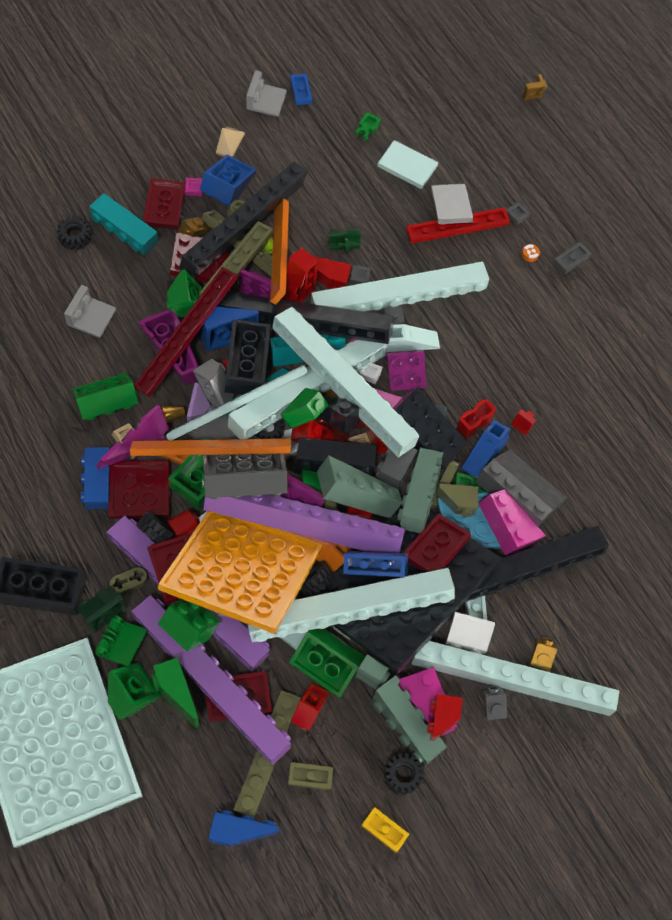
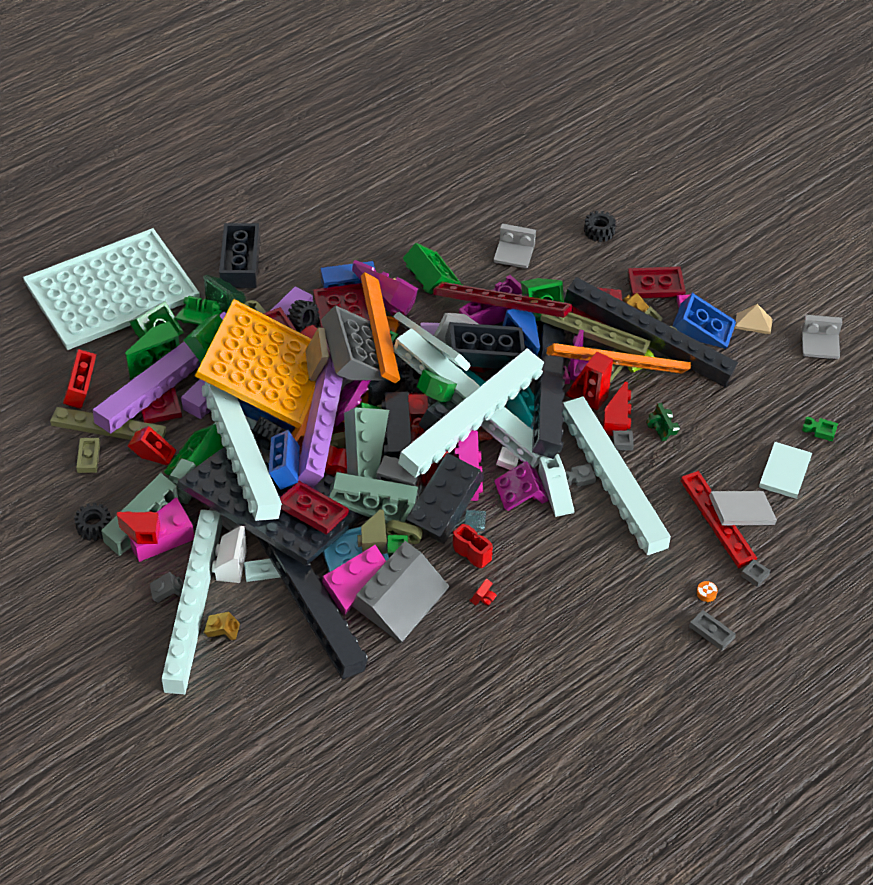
camera: 90 degrees right, 15 degrees down
(123, 224) = (620, 256): teal brick -> none
(172, 412) = (423, 313): pearl gold cone -> none
(202, 779) = (79, 379): none -> red brick
(233, 830) = (39, 407): blue slope -> none
(242, 512) = (317, 354): none -> dark tan tile
(301, 89) = (845, 367): blue plate -> none
(385, 830) = (41, 512): yellow plate -> none
(487, 448) = (444, 558): blue slope -> none

